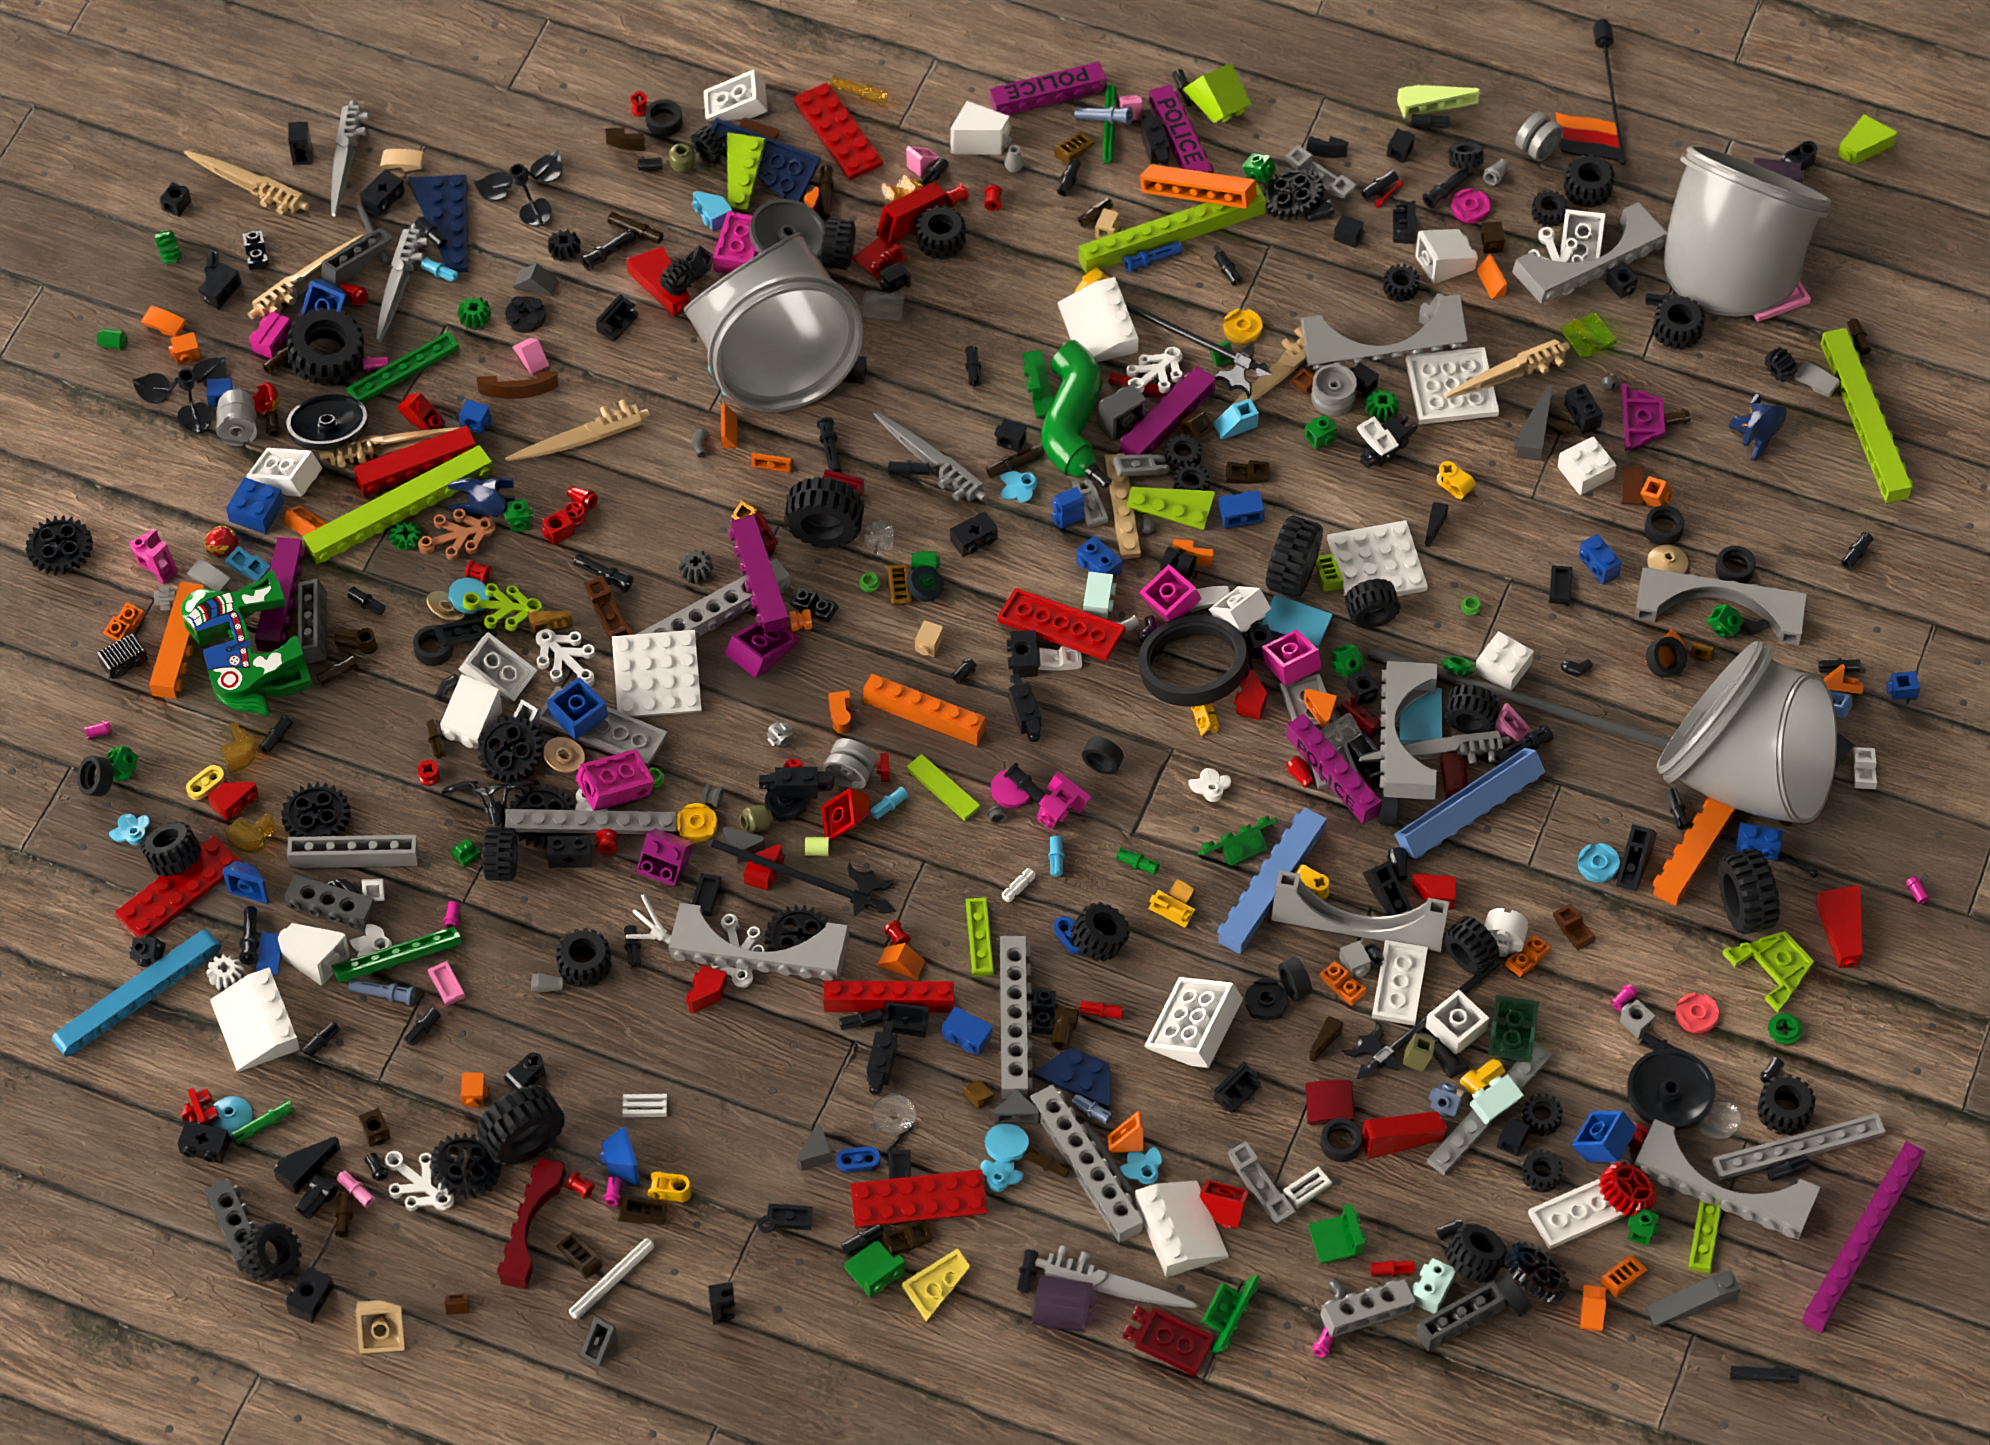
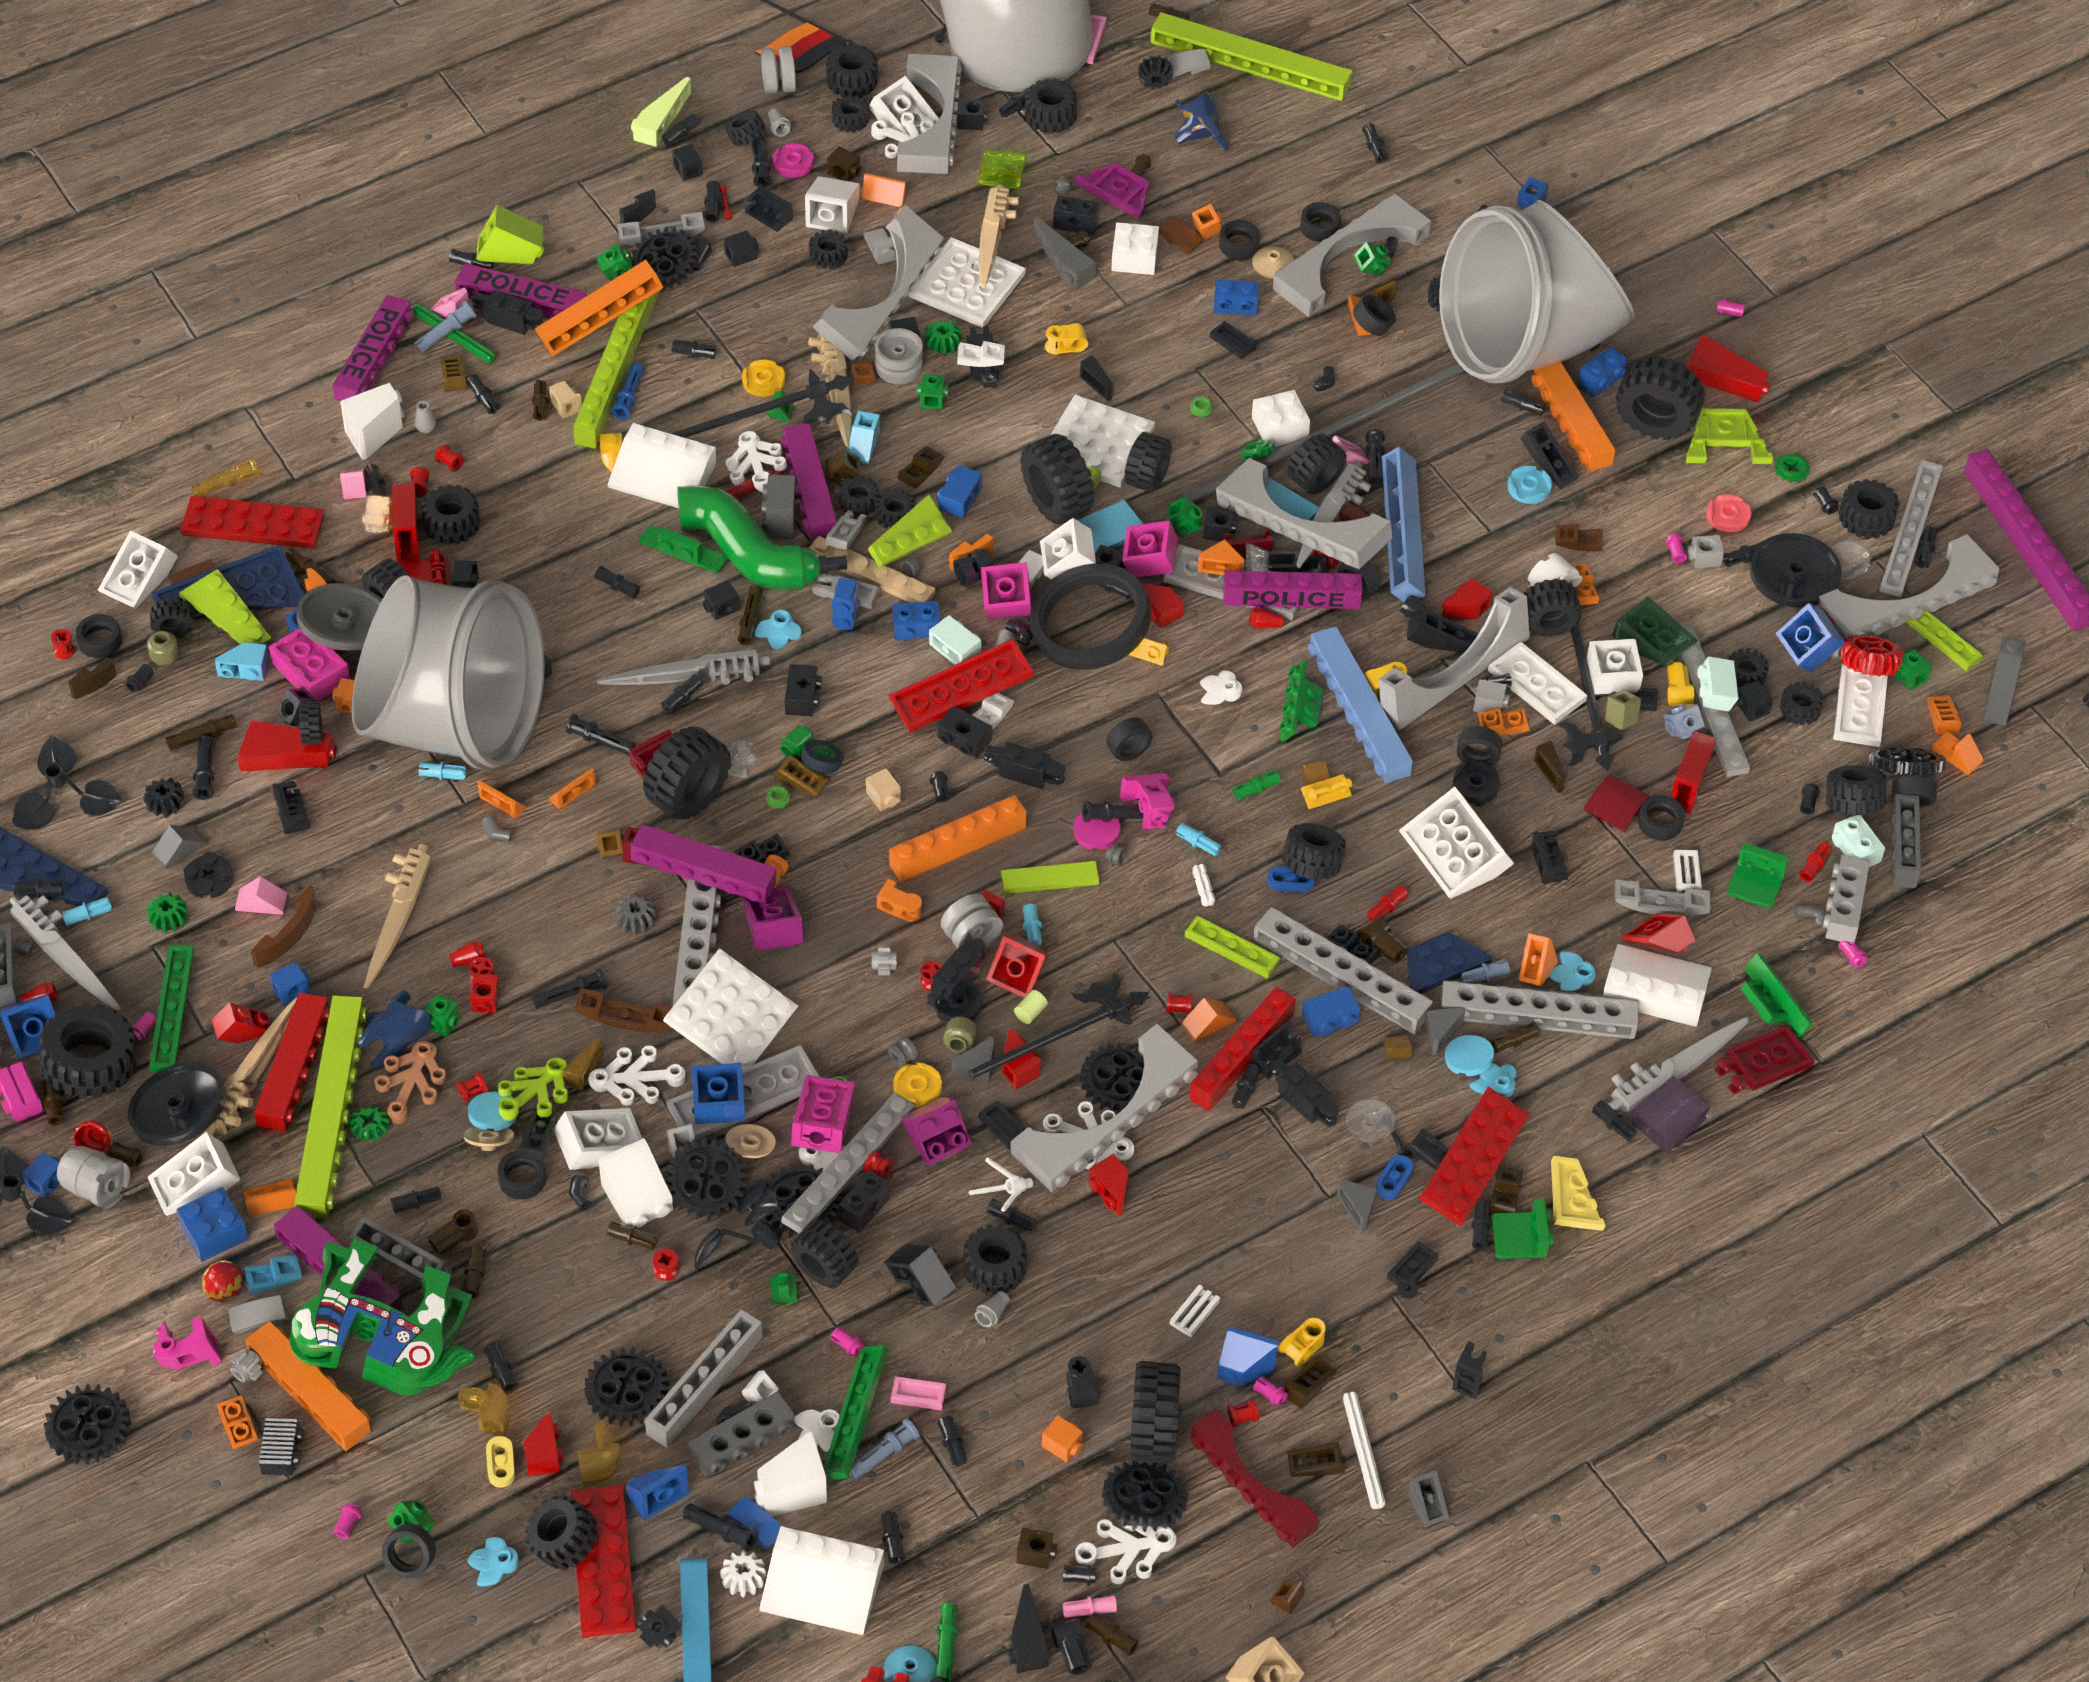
camera: 55 degrees left, 5 degrees down
(533, 921) = (922, 1271): none -> black brick

